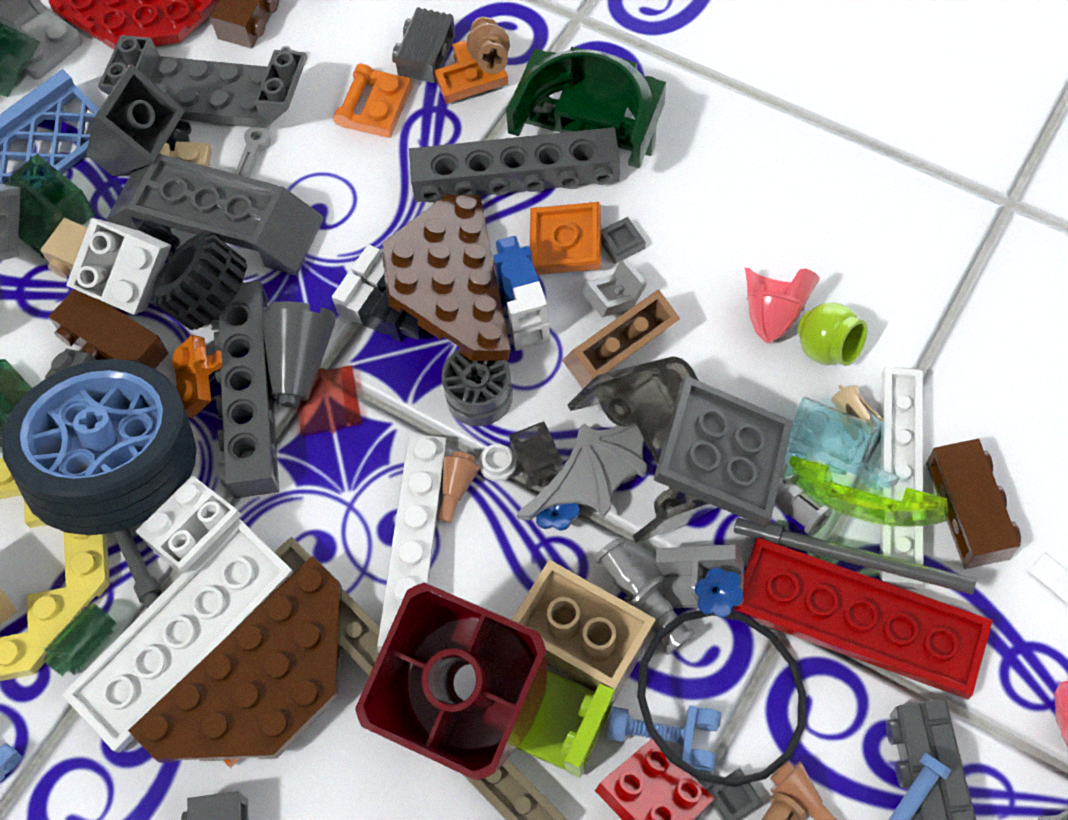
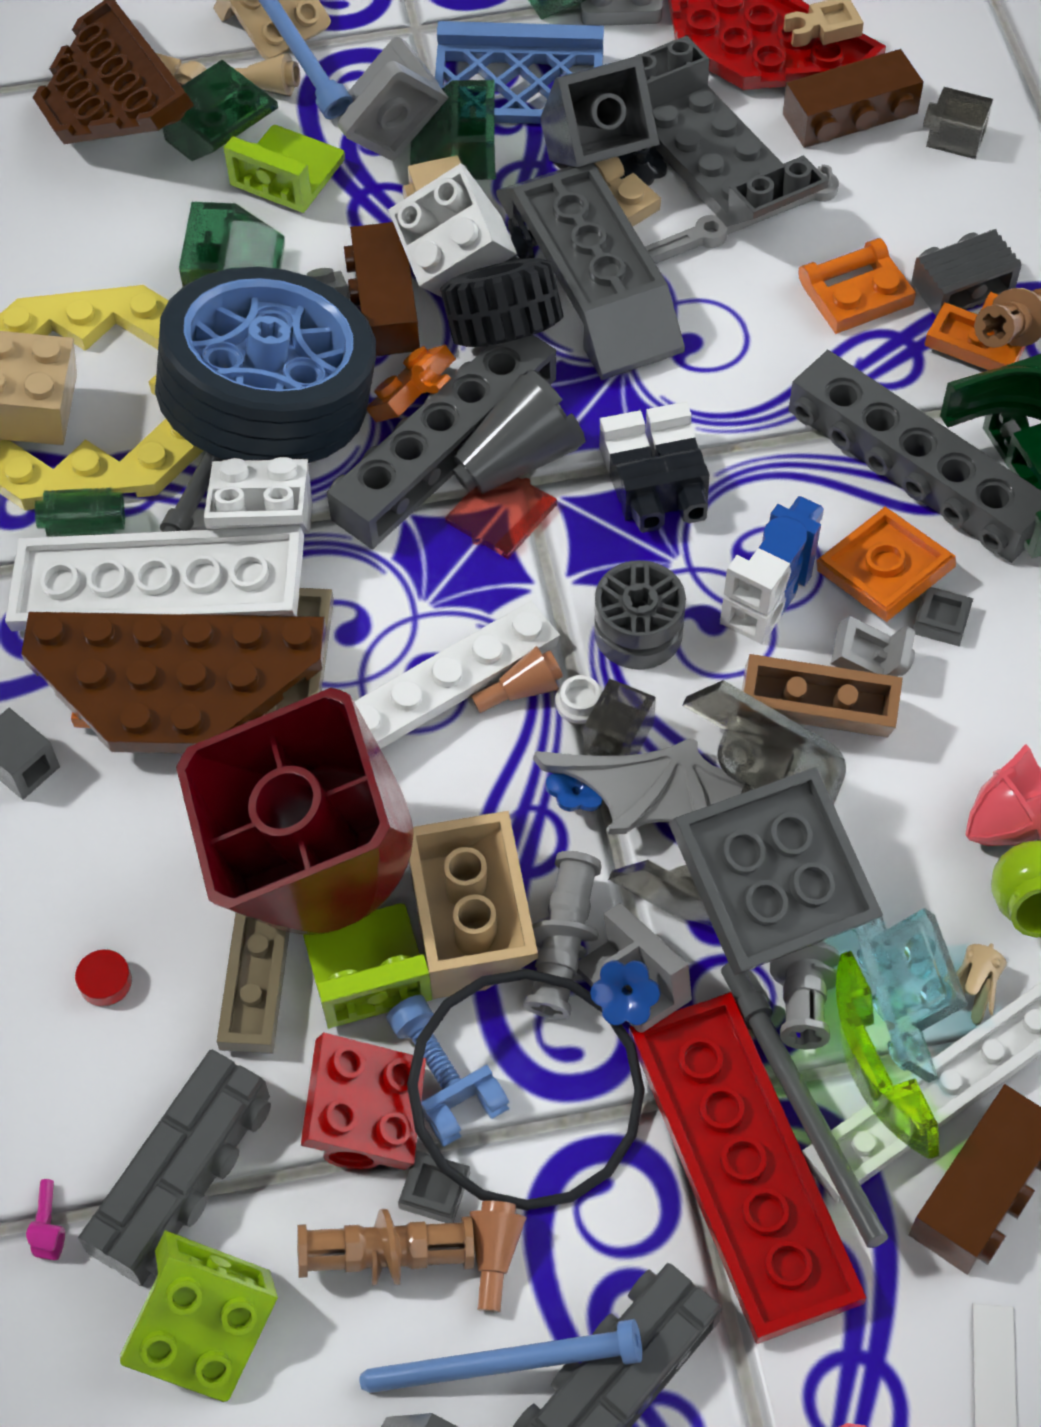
camera: 45 degrees right, 5 degrees down
(447, 277) = (714, 487): plate -> none

